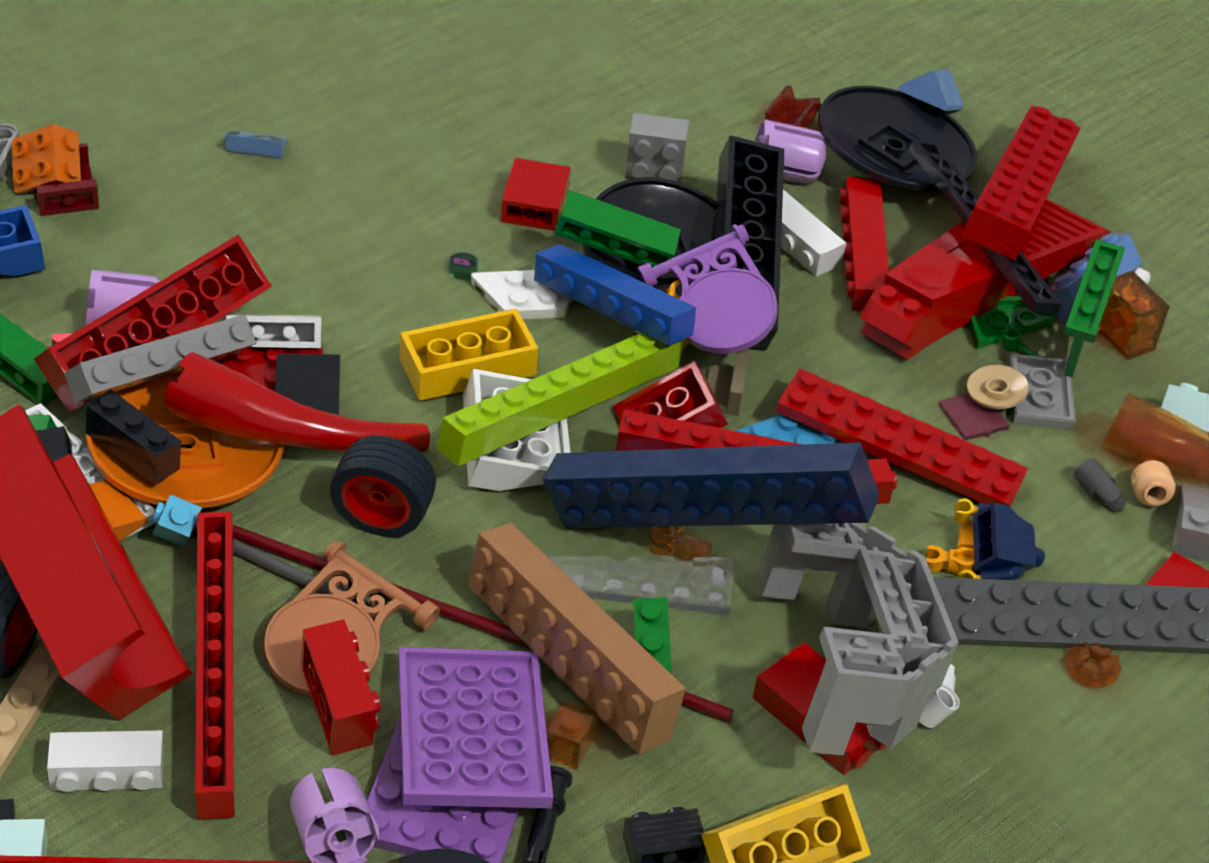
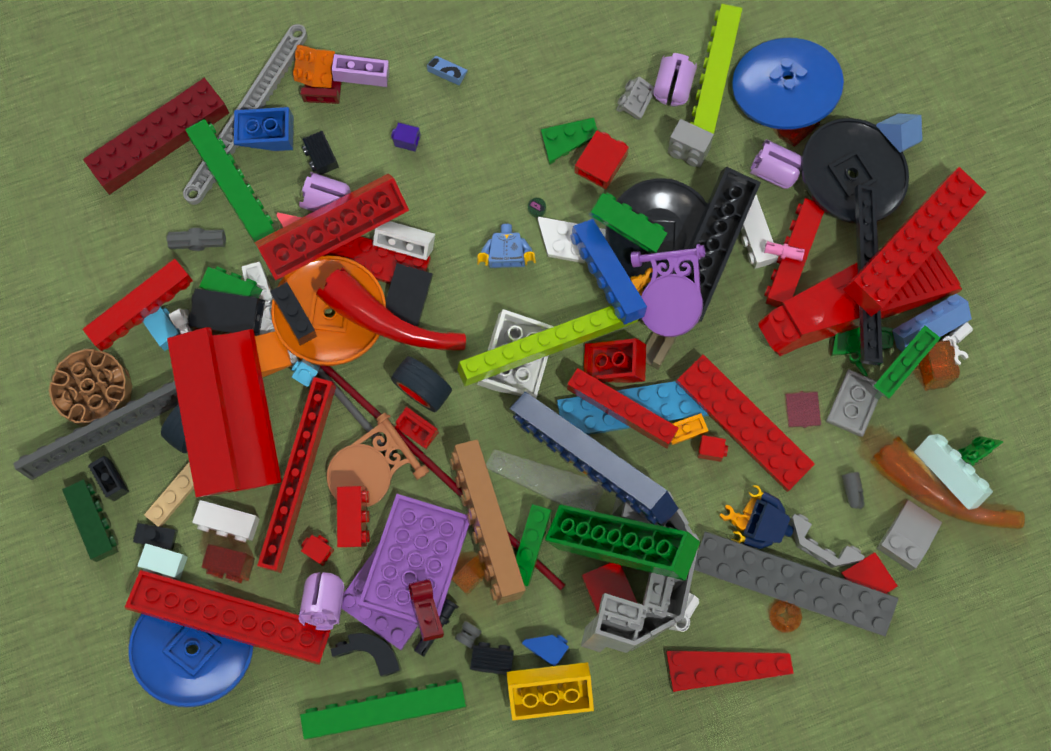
camera: 30 degrees right, 30 degrees up
(89, 253) = (320, 153): none -> black brick
(124, 154) = (360, 70): none -> lavender brick
(136, 810) = (228, 563): none -> clear red brick
(158, 358) = (324, 260): light grey brick -> none
(224, 219) = (406, 137): none -> dark purple brick
(288, 760) = (317, 549): none -> red brick
(396, 557) = (416, 428): none -> red hinge
(443, 306) = (506, 250): none -> medium blue torso
(443, 355) = (510, 287): yellow brick -> none
(471, 183) = (566, 137): none -> green wing
(512, 755) = (425, 610): none -> dark red plate
(552, 122) = (636, 97): none -> light grey bracket
(595, 91) = (684, 70): none -> lavender cylinder
(606, 817) = (466, 639): none -> dark grey wheel
(647, 62) = (716, 67): none -> lime brick
(743, 795) = (548, 648): none -> blue slope
(755, 72) = (790, 102): none -> blue dish
(808, 580) = (623, 541): none -> green brick
(852, 230) = (784, 251): none -> bright pink pin
(997, 386) = (828, 388): tan dish -> none
(1024, 761) = (707, 669): none -> red wing
(1094, 568) = (847, 556): none -> light grey slope
(1153, 483) = (886, 499): light nougat head -> none

